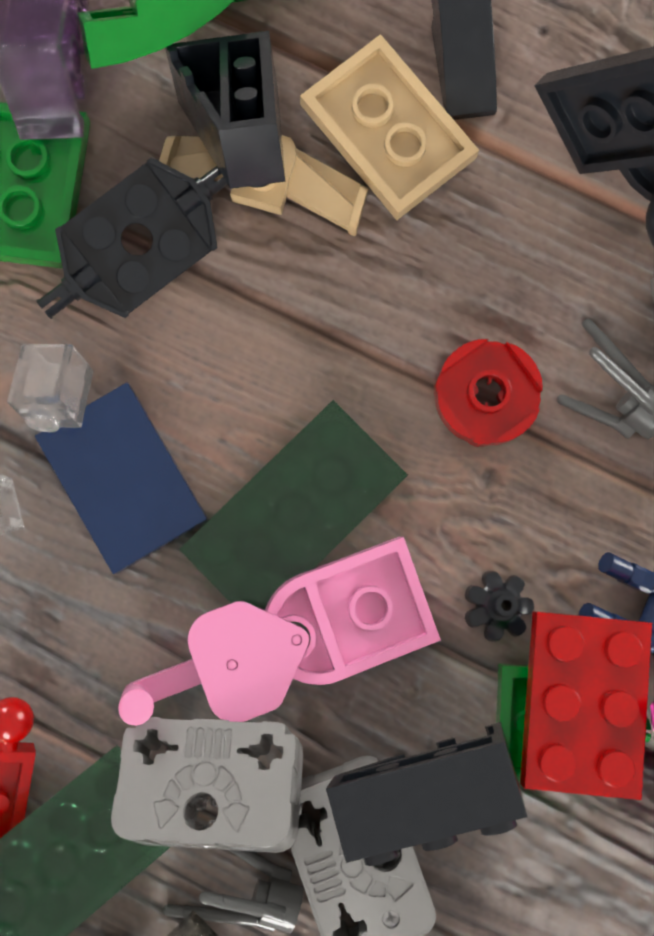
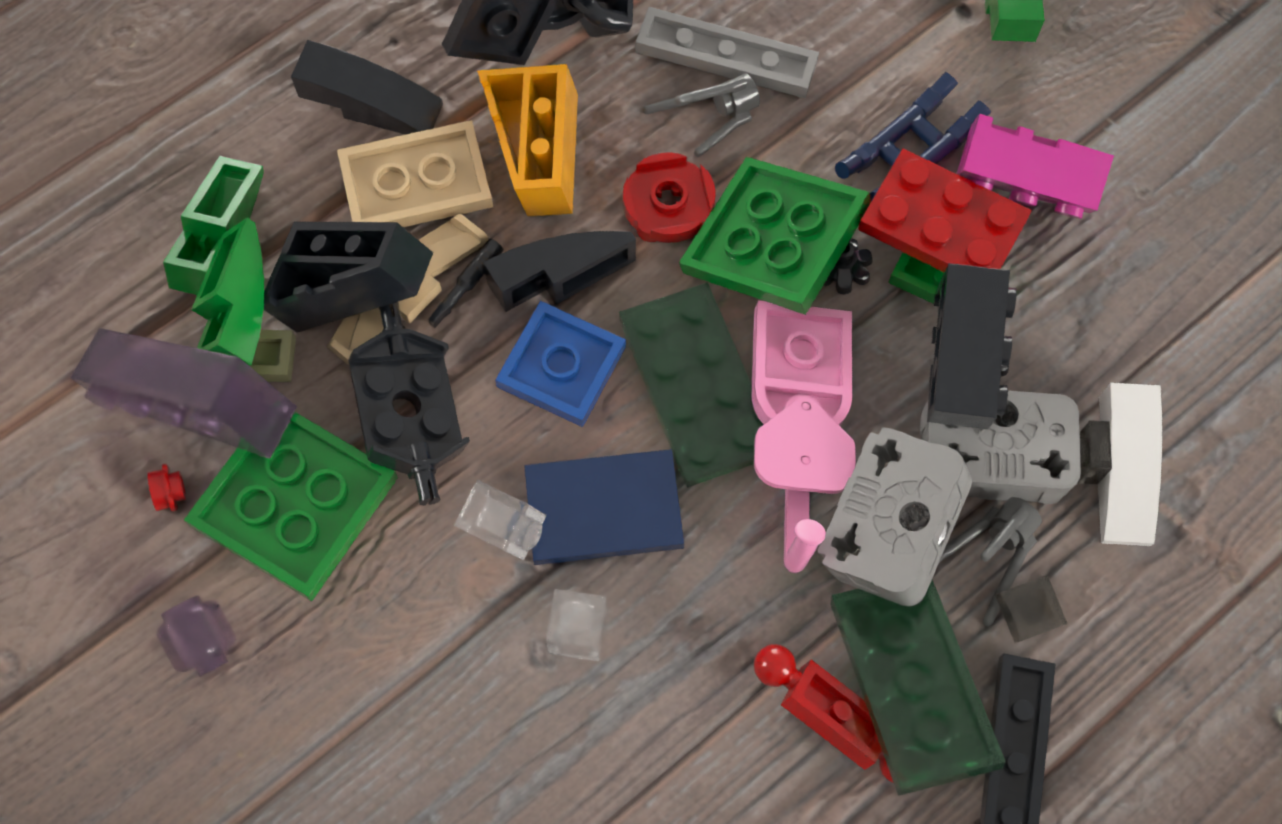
camera: 65 degrees left, 15 degrees down
(133, 87) = (275, 355): none -> olive plate
(249, 368) = (561, 363): none -> blue plate
(305, 234) = (466, 280): none -> black piece
(352, 313) = (558, 265): none -> black slope
(491, 222) = (536, 132): none -> light orange wedge
(491, 525) = (775, 234): none -> green plate

